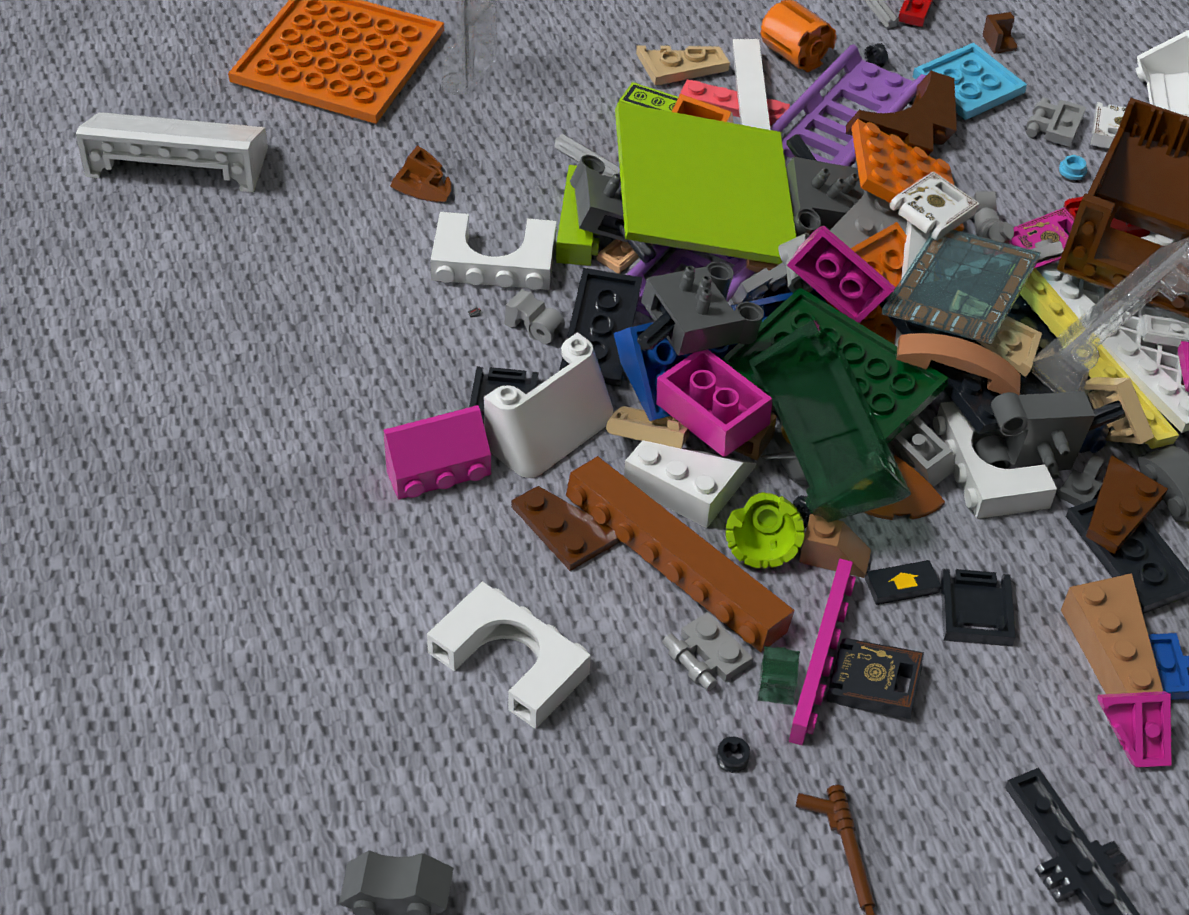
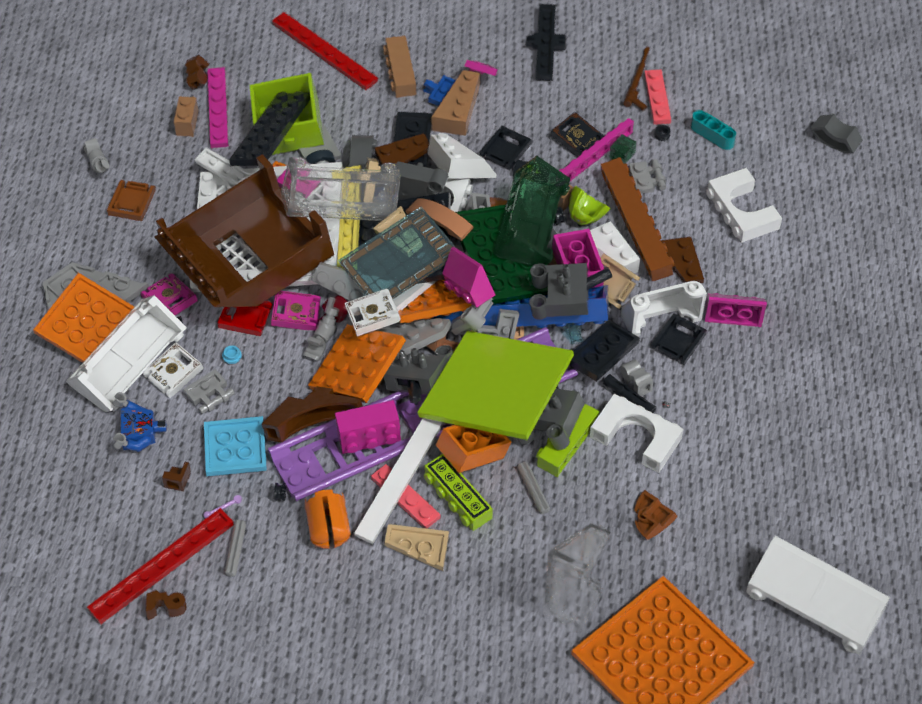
camera: 150 degrees left, 5 degrees up
(505, 292) = (622, 390): none -> black pin
(629, 778) = (713, 129): none -> teal beam
(792, 839) = (657, 97): none -> coral plate
(826, 108) = (368, 427): none -> dark pink brick
(918, 44) = (237, 499): none -> lavender hinge
(1025, 517) = (457, 159): none -> white wedge
(1093, 56) = (137, 425): none -> blue torso

